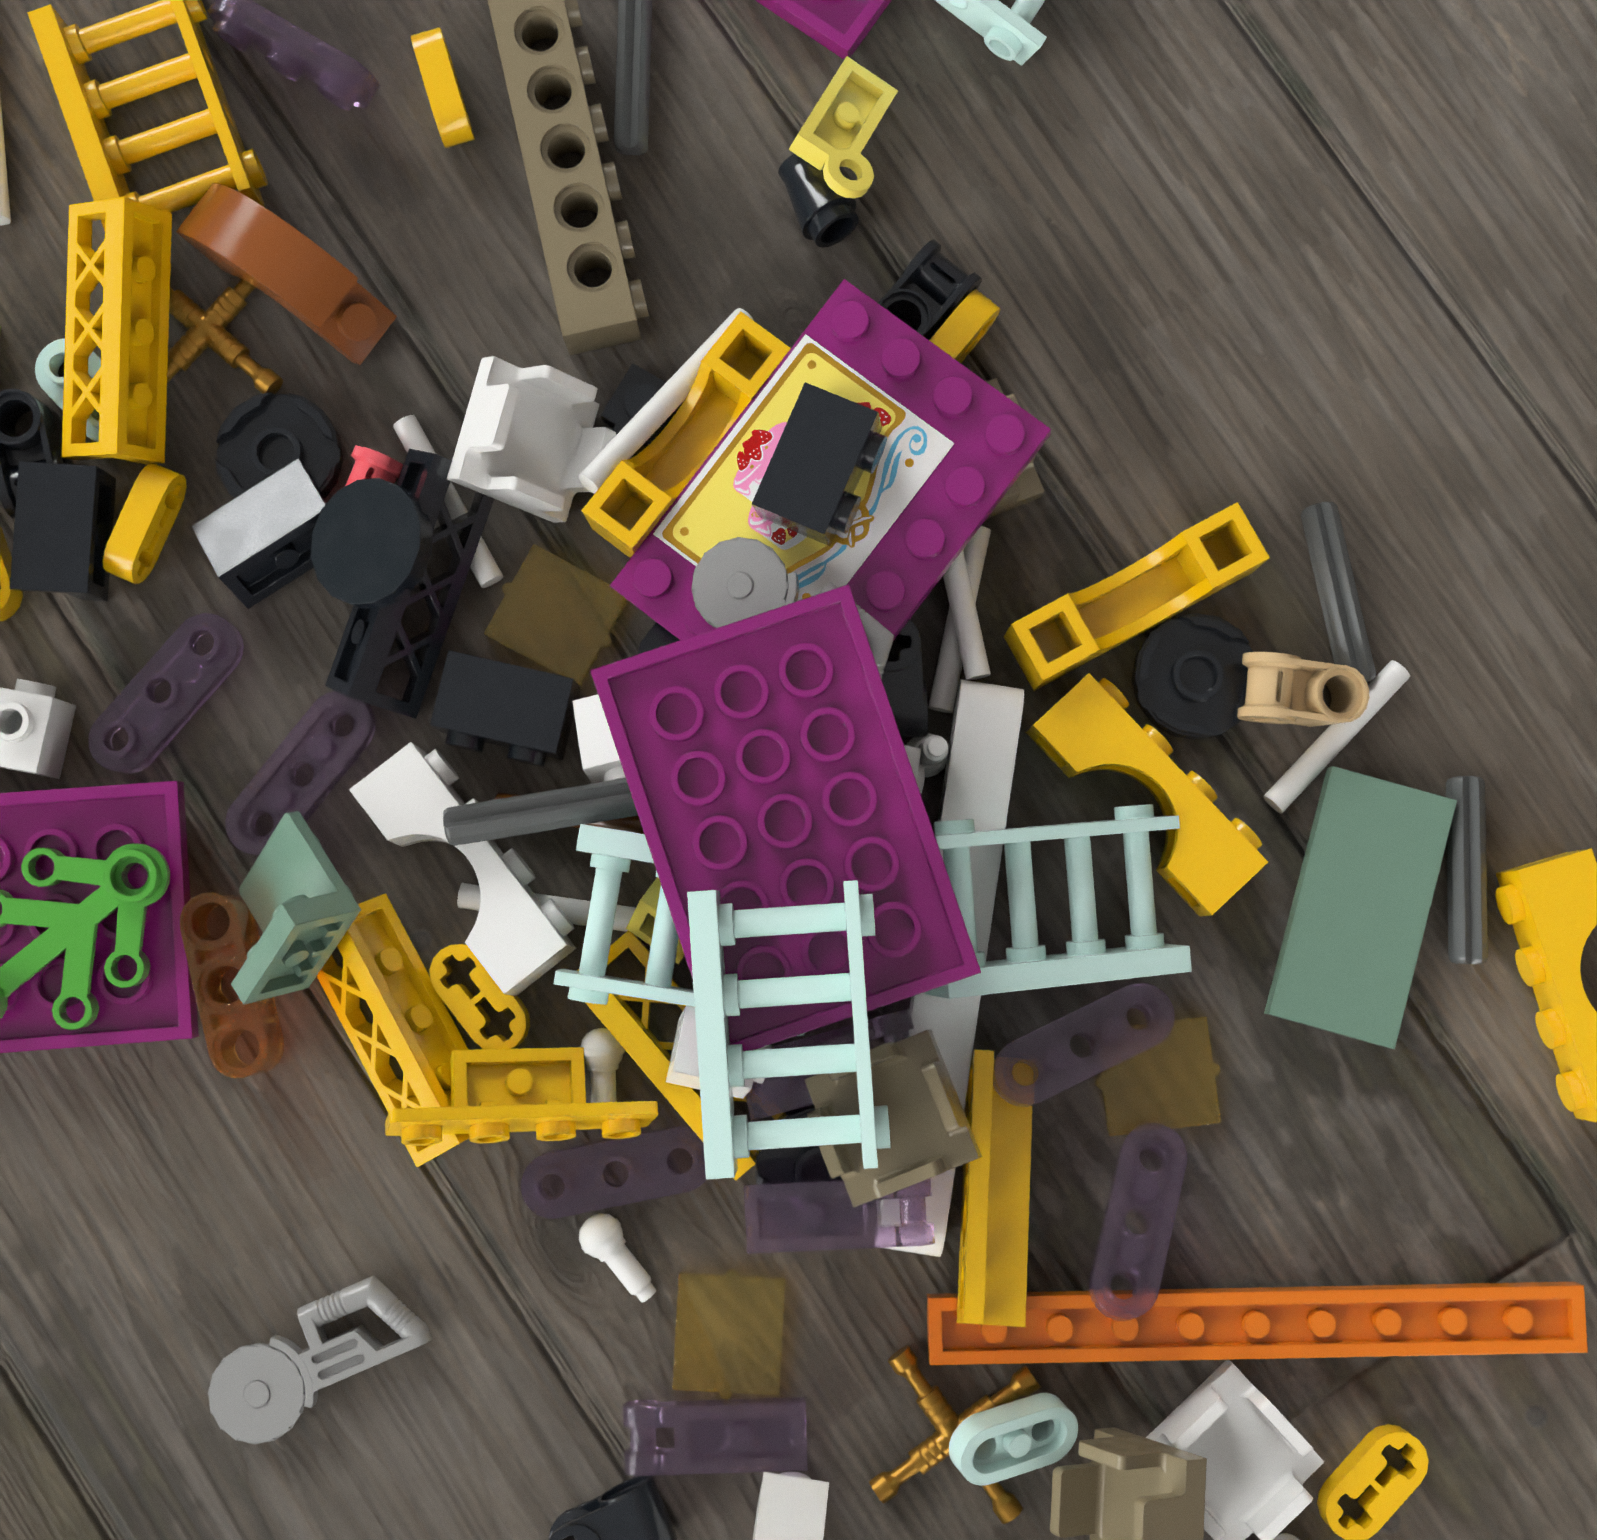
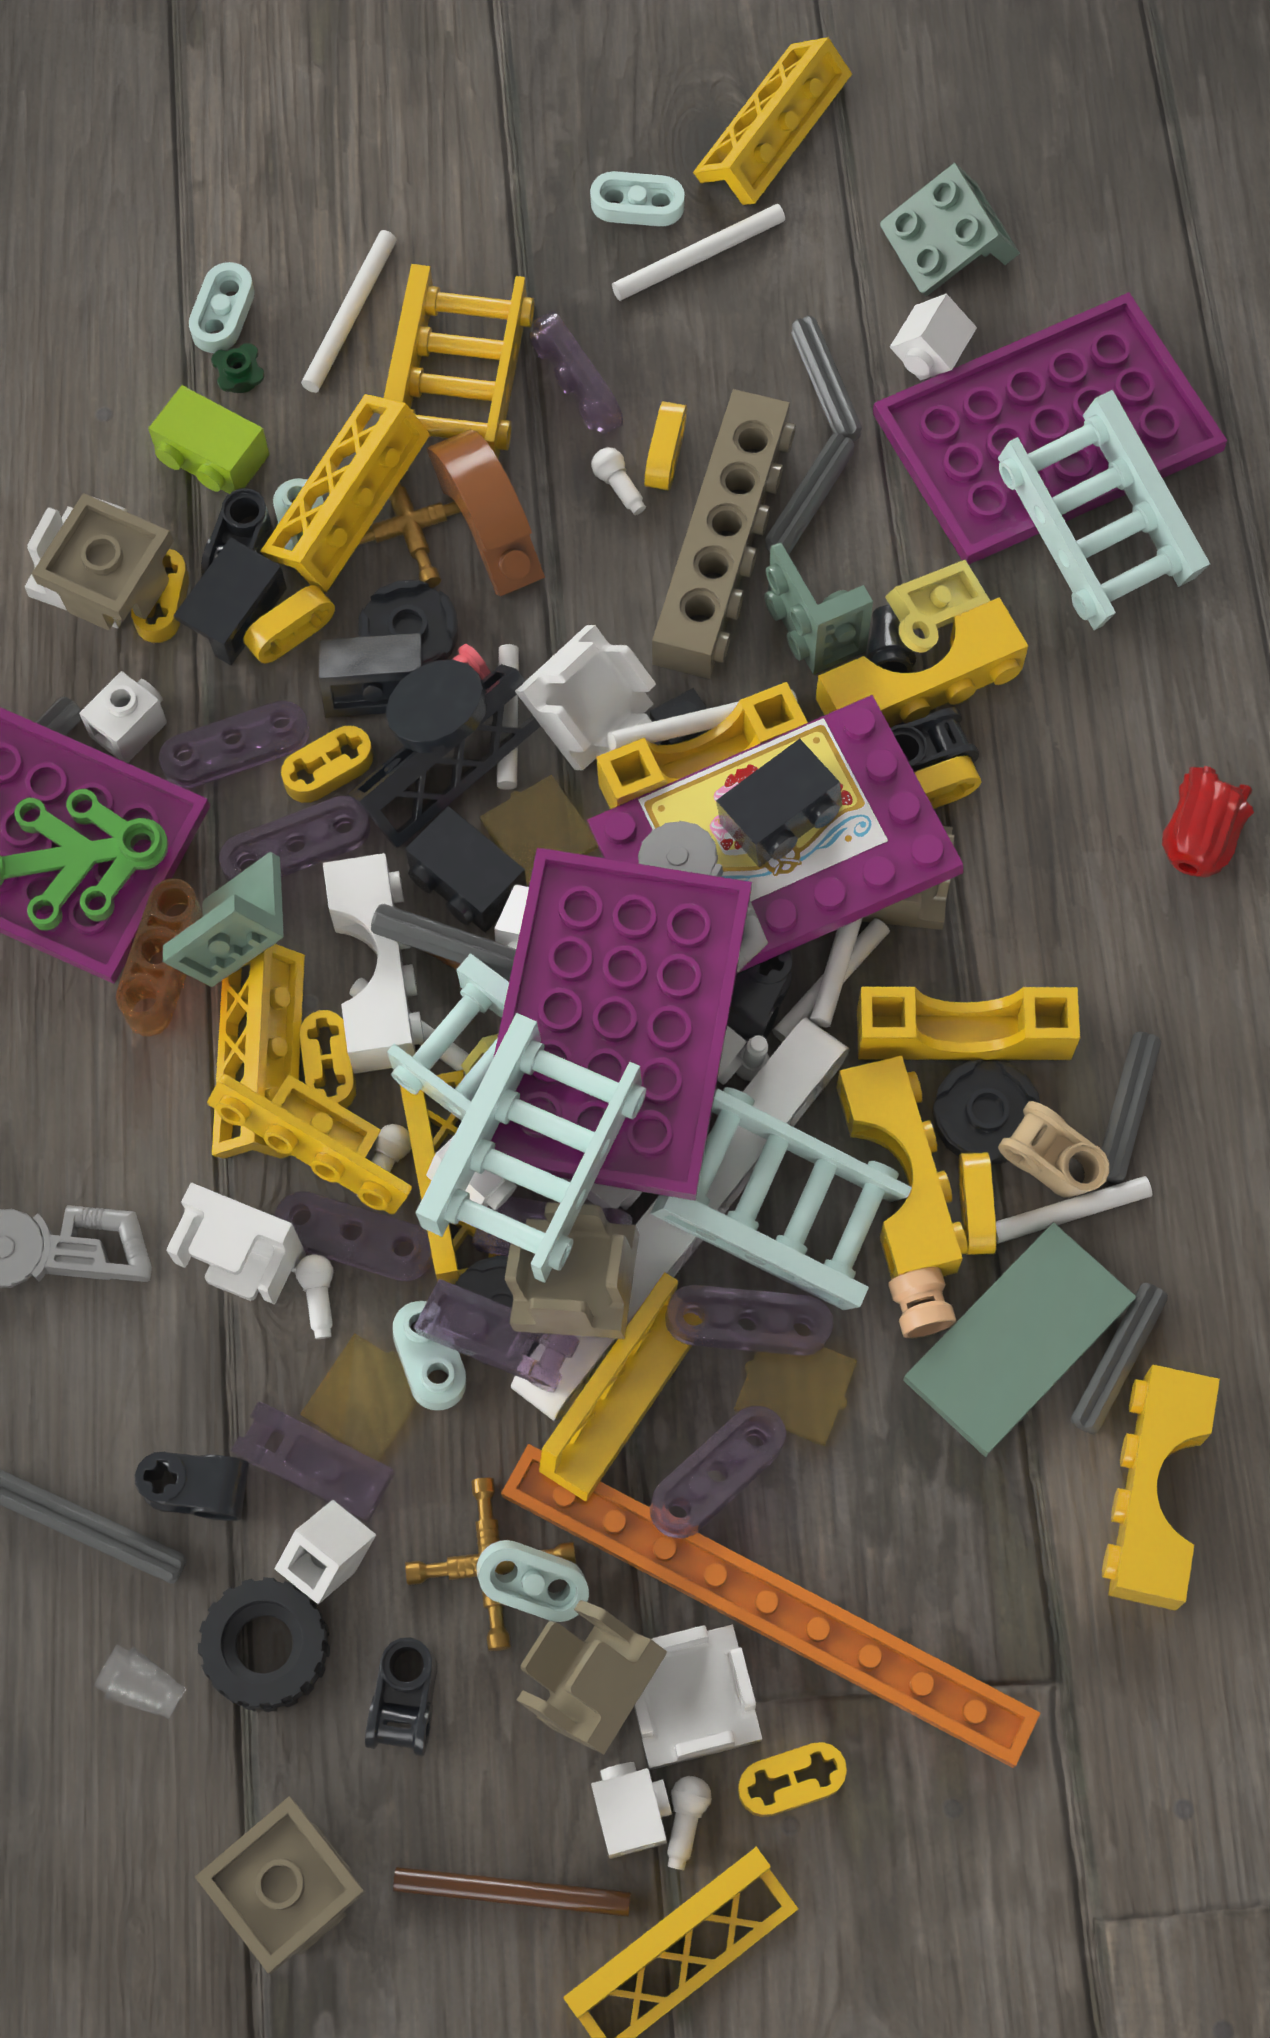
camera: 30 degrees right, 15 degrees down
(270, 654) = (327, 764): none -> yellow beam
(394, 146) = (610, 467): none -> white piece
(504, 1268) = (242, 1244): none -> white panel
(728, 233) = (820, 632): none -> sand green bracket
(766, 1269) = (423, 1356): none -> light aqua plate
(918, 153) = (982, 651): none -> yellow arch
(1242, 784) = (977, 1203): none -> yellow beam
(1252, 938) = (922, 1302): none -> light nougat wheel
(1261, 234) = (1206, 823): none -> red piece

